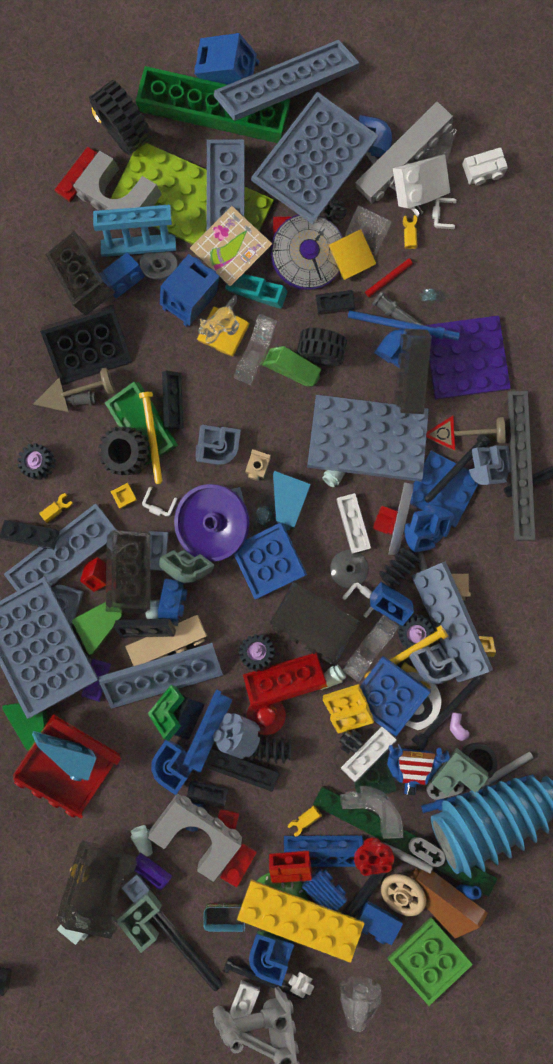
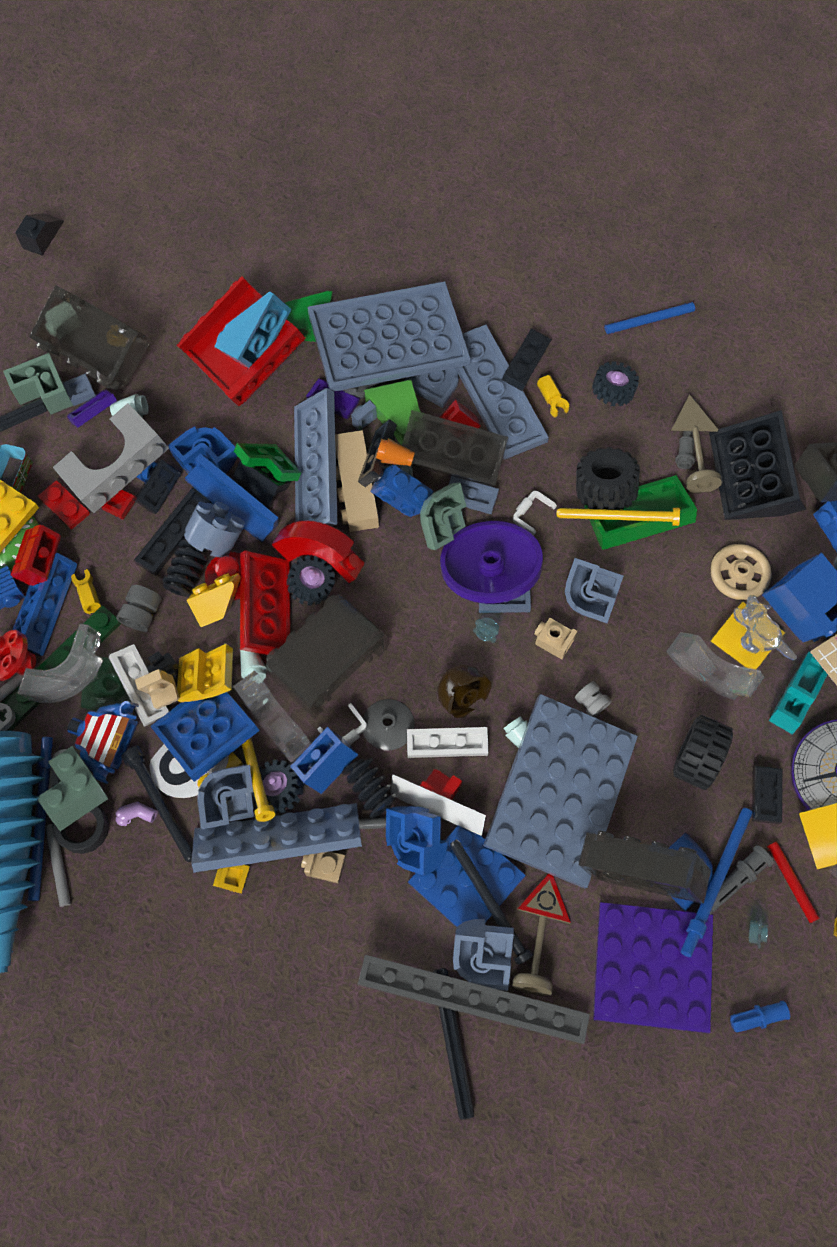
camera: 105 degrees right, 15 degrees down
(108, 651) = (364, 415): none -> sand blue plate
(123, 495) = (550, 472): yellow plate -> none
(150, 613) = (394, 453): none -> orange cone
(165, 330) = (728, 586): none -> tan plate
(172, 400) = (664, 553): black plate -> none
(228, 653) = (320, 541): none -> red arch
(269, 561) = (424, 620): blue plate -> none
(289, 498) = (501, 663): dark azure slope -> none
(292, 366) = (681, 713): bright green slope -> none
(292, 718) = (213, 601): none -> yellow slope
(297, 429) = (593, 699): none -> light grey wheel
(310, 774) = (140, 604): none -> dark grey wheel
(313, 522) = (466, 686): none -> dark brown cylinder
(371, 735) = (160, 687): none -> tan bracket
(480, 286) = (760, 1016): none -> blue axle

